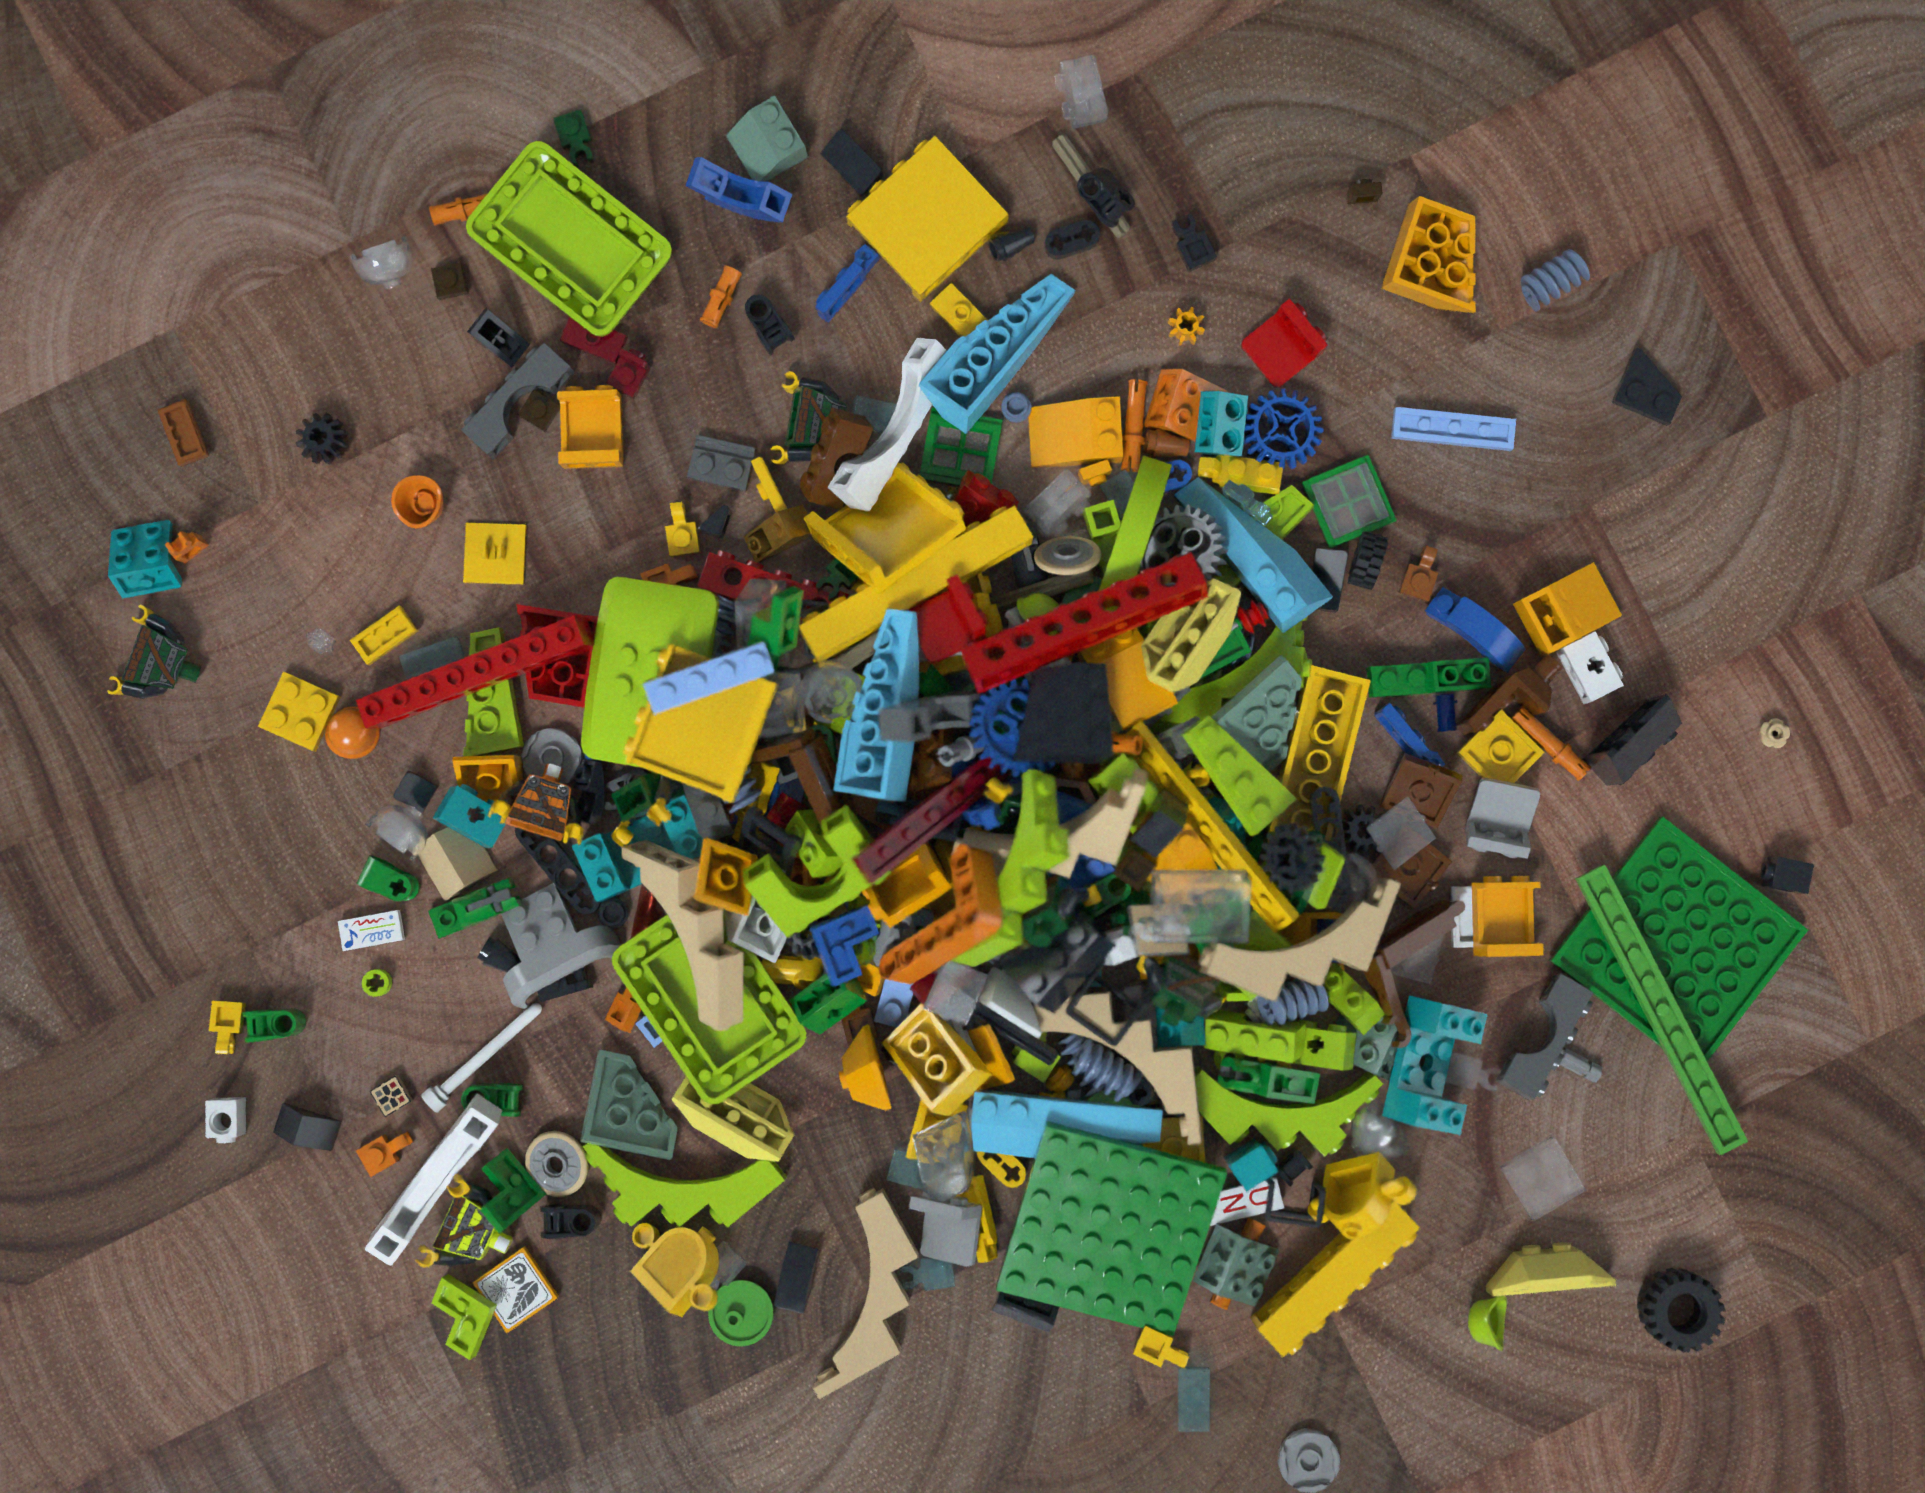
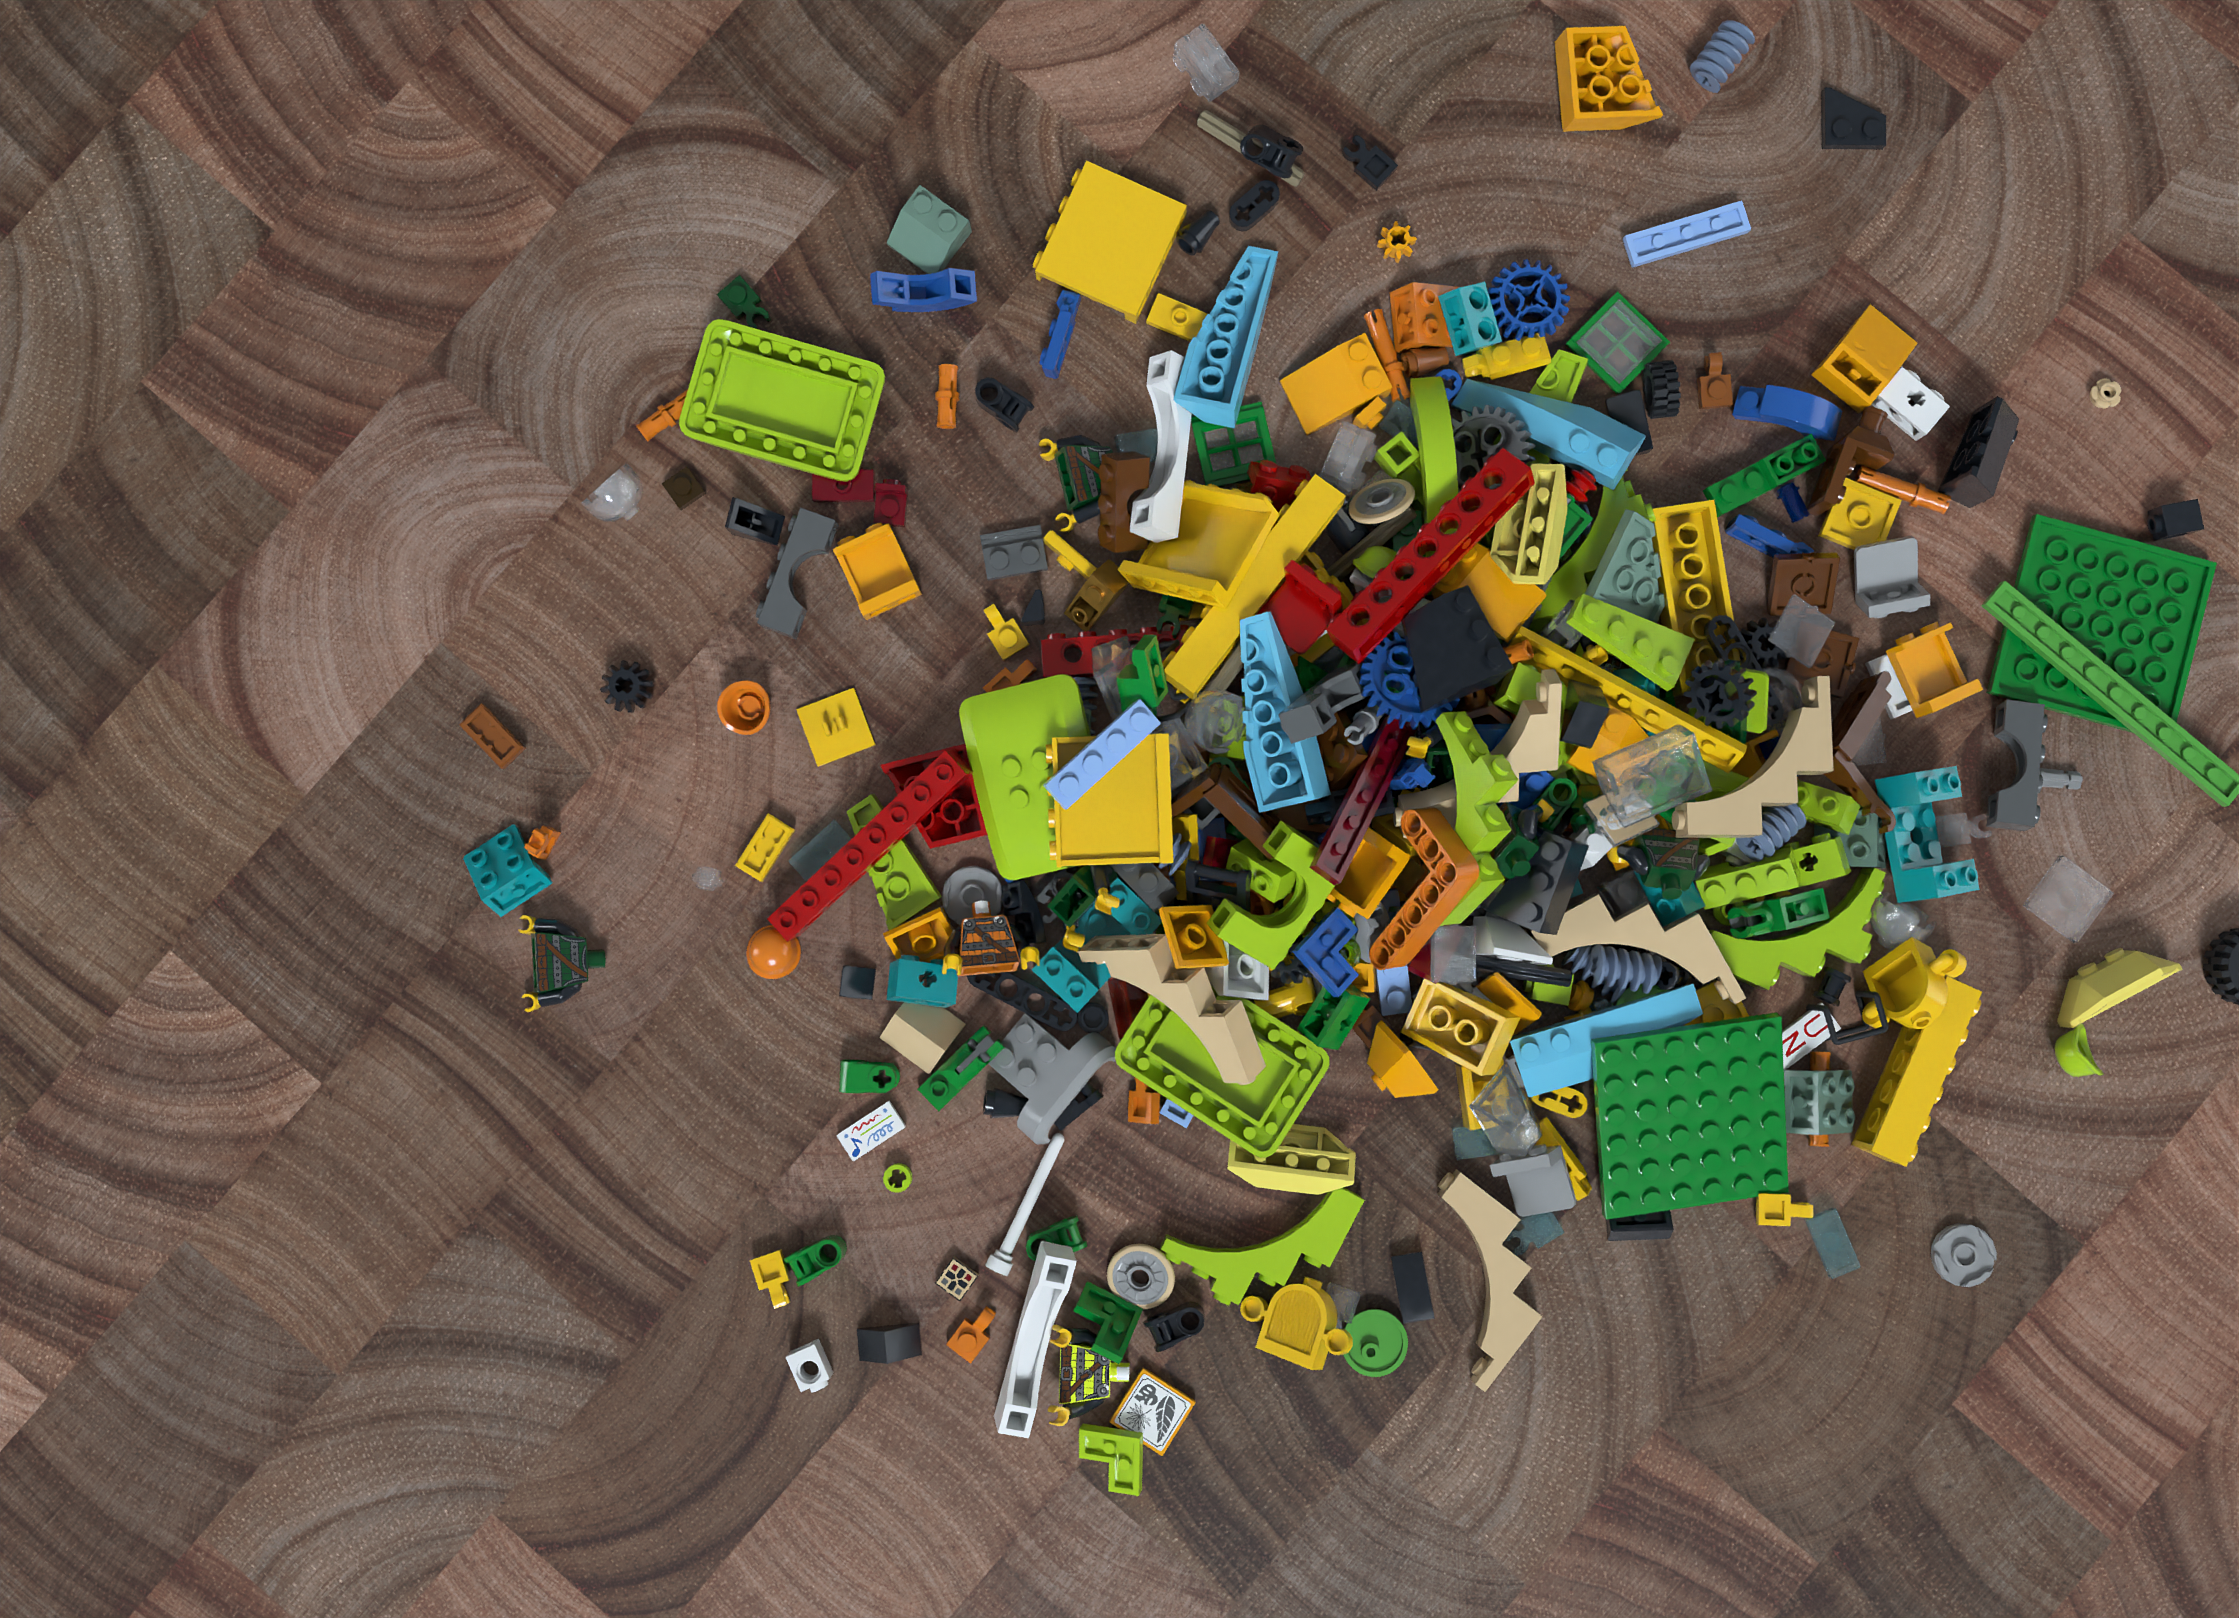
camera: 20 degrees left, 0 degrees up
(299, 711) = (714, 953): yellow plate -> none
(401, 829) = (860, 1023): clear cylinder -> none
(539, 411) = (820, 575): dark brown plate -> none
(625, 1110) = (1185, 1198): sand green plate -> none
(852, 162) = (1016, 219): black slope -> none
(1016, 407) = (1269, 384): sand blue plate -> none
(1134, 870) = (1574, 768): dark brown plate -> none
(1138, 1006) = (1632, 893): black piece -> none
(1244, 498) = (1522, 380): clear light blue plate -> none
(1252, 1163) = (1795, 999): teal brick -> none
(1284, 344) = (1496, 219): red bracket -> none
(1364, 192) = (1509, 47): dark brown plate -> none

